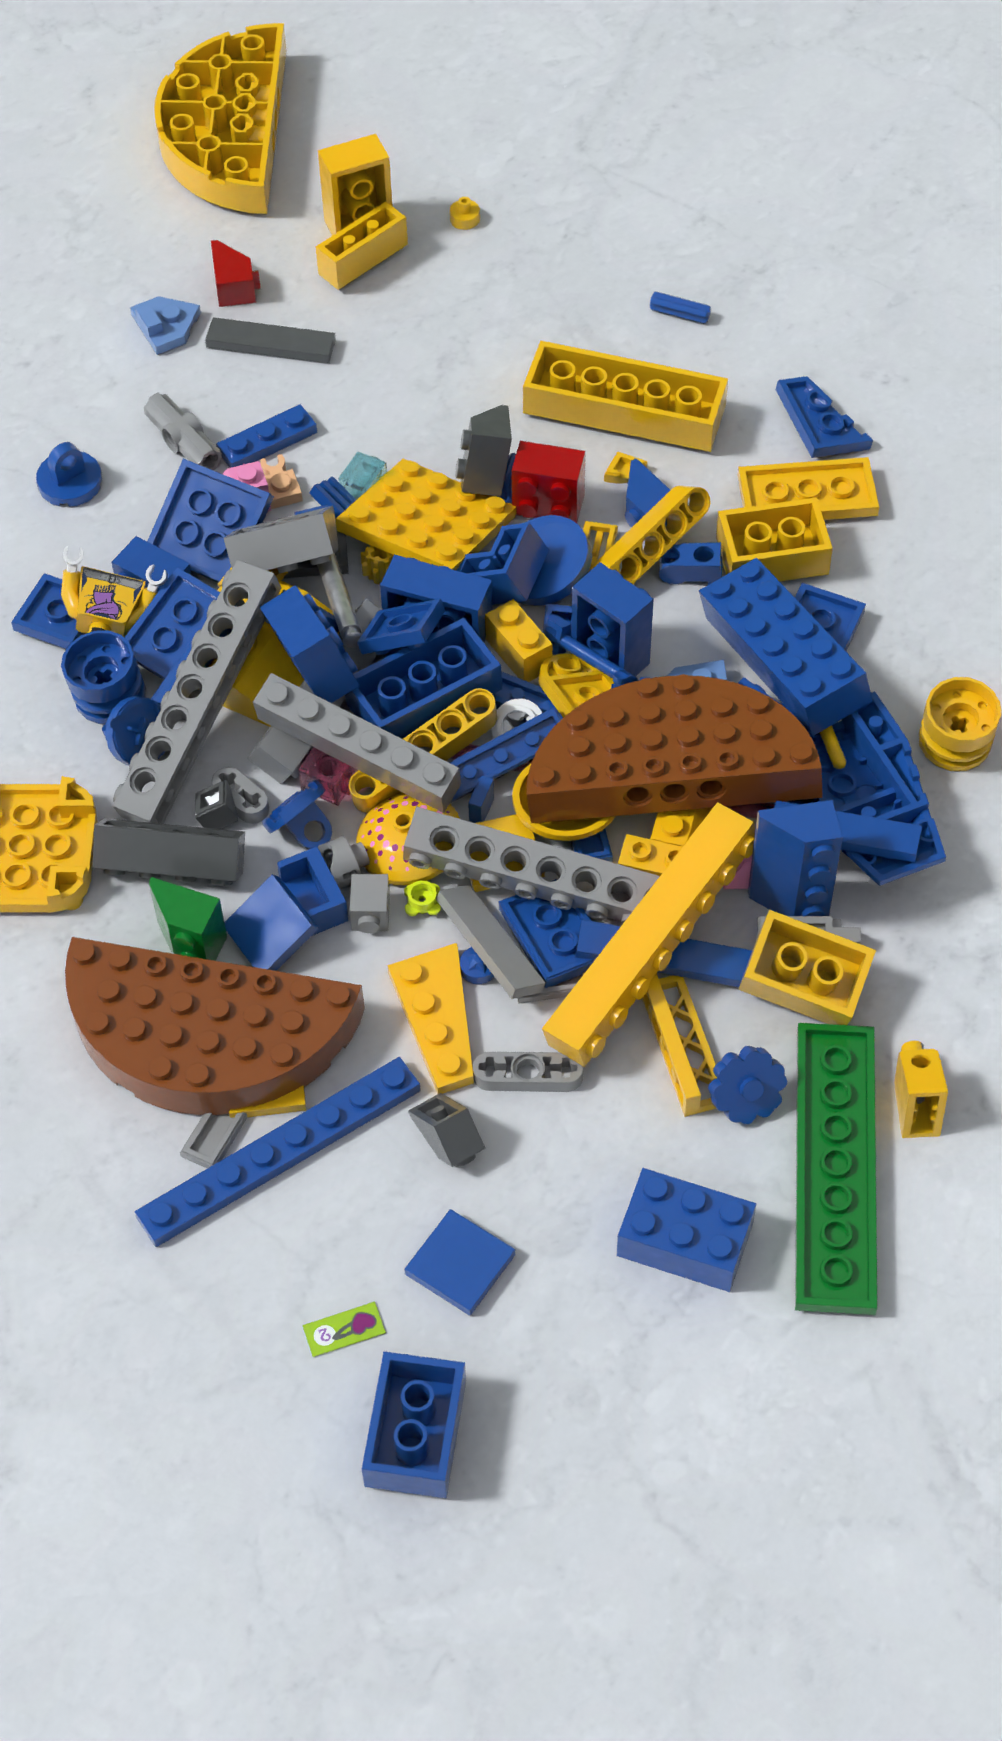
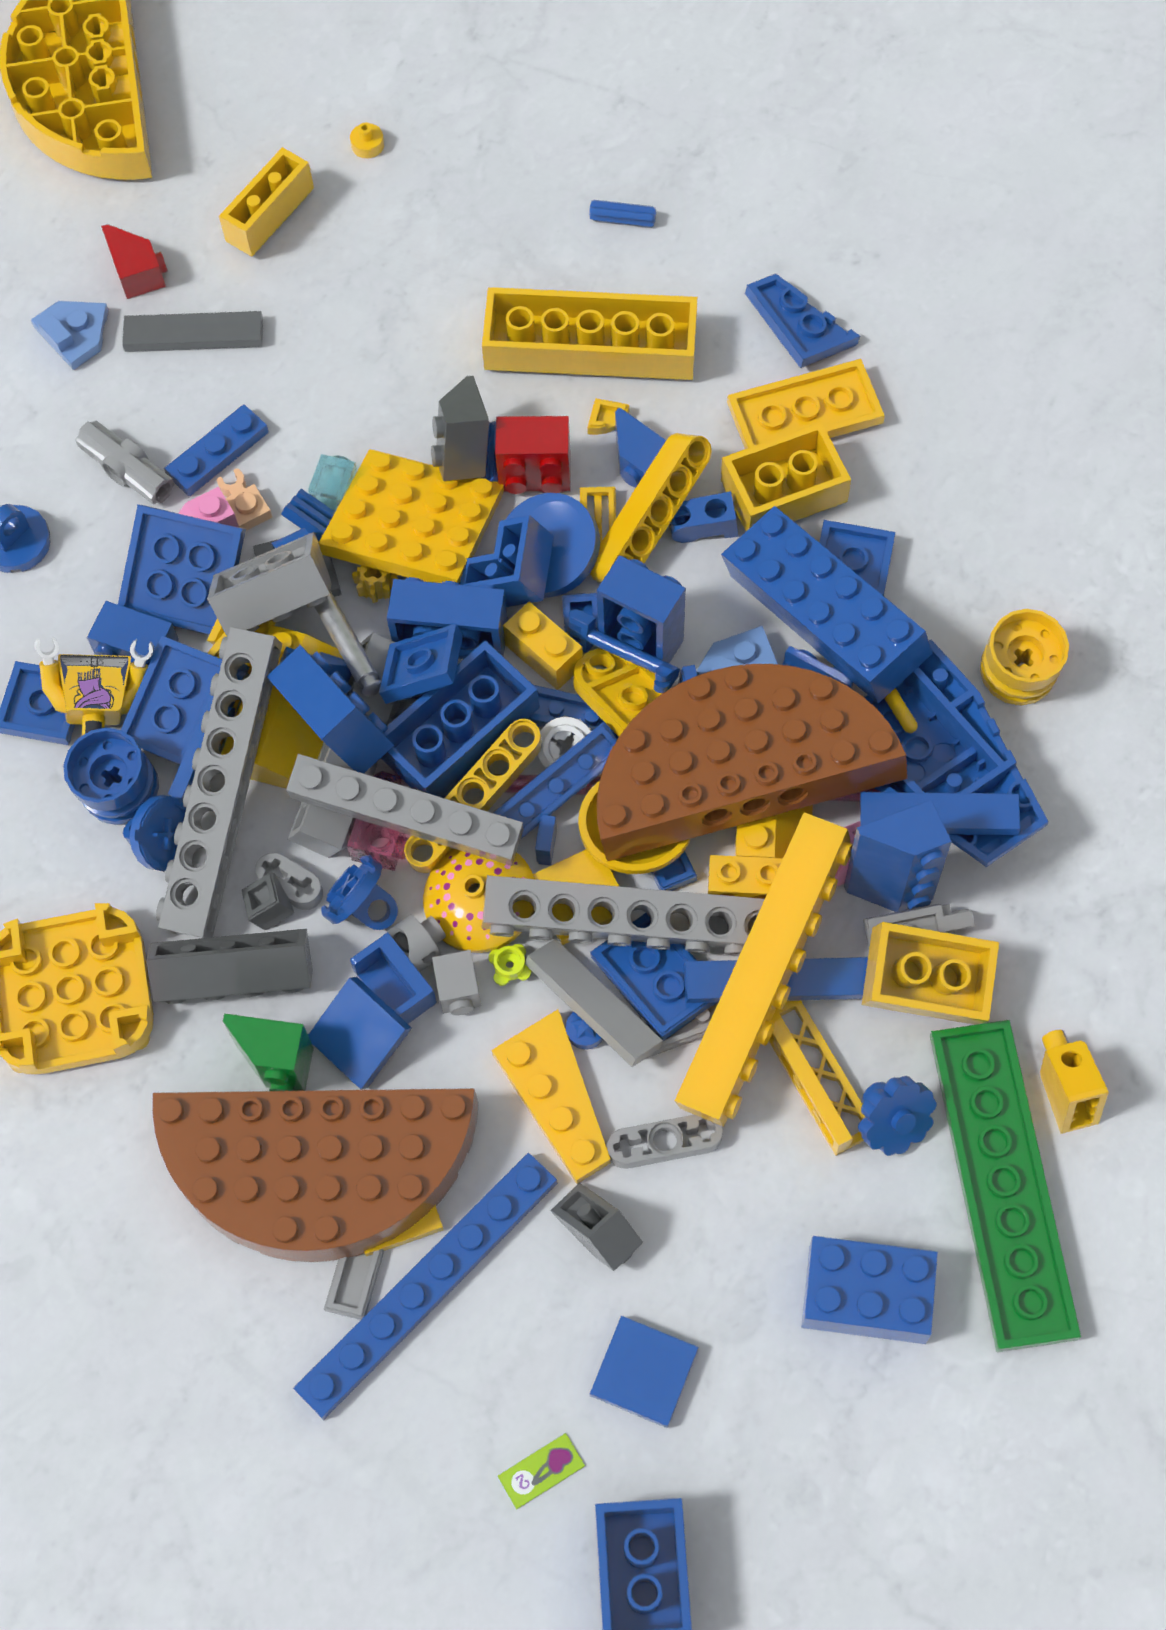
camera: 10 degrees left, 10 degrees up
(353, 180) = (243, 132): yellow brick -> none

